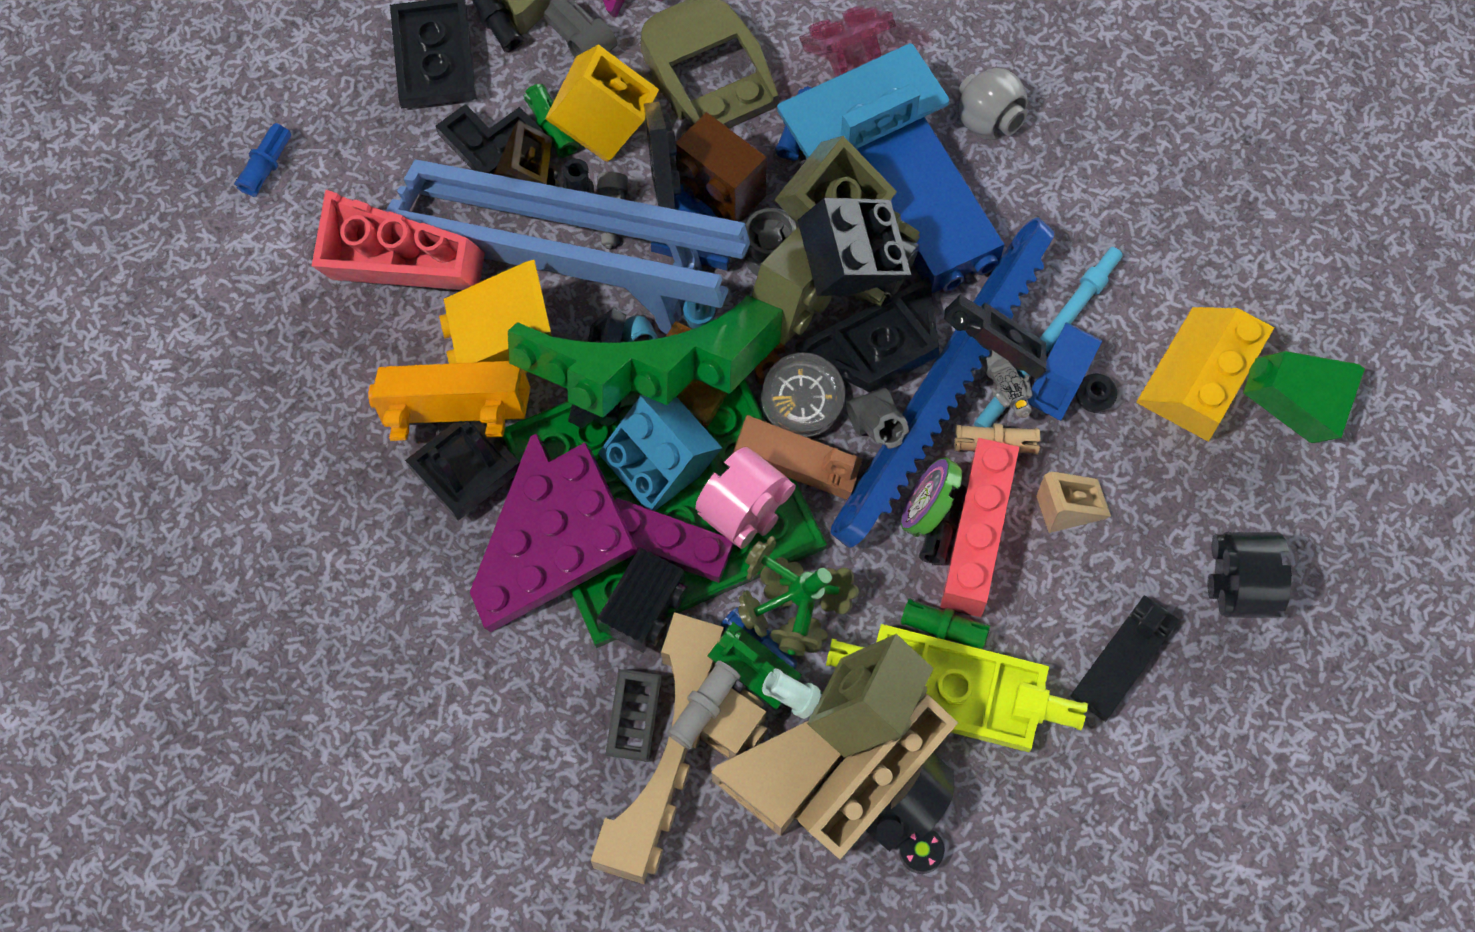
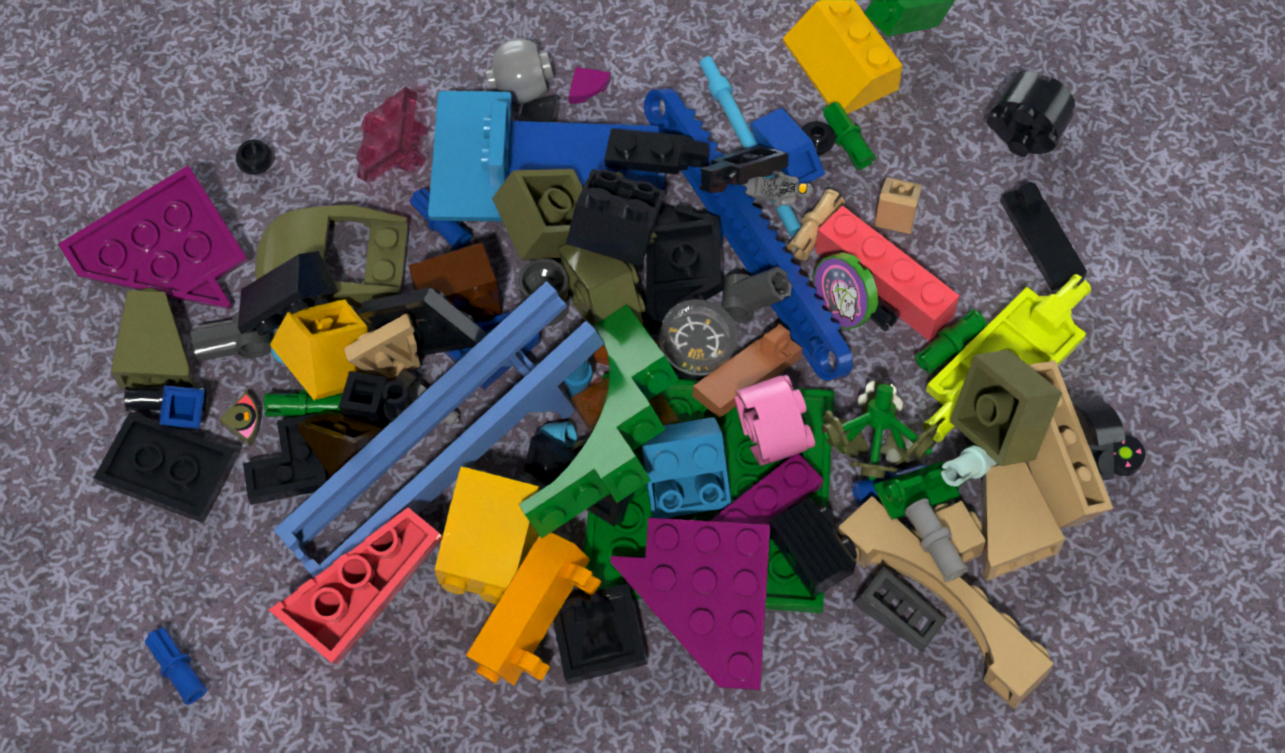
camera: 60 degrees left, 5 degrees down
(486, 29) = (181, 407): none -> blue slope
(511, 83) = (242, 419): none -> olive tile
(572, 146) = (363, 397): none -> black brick
(623, 145) = (386, 349): none -> tan wing
(629, 37) = (288, 288): none -> black slope
(961, 145) = (540, 110): none -> black slope
(966, 251) = (654, 152): none -> black hinge
(1021, 166) = (587, 84): none -> magenta tile
(1116, 420) = (848, 136): none -> green axle

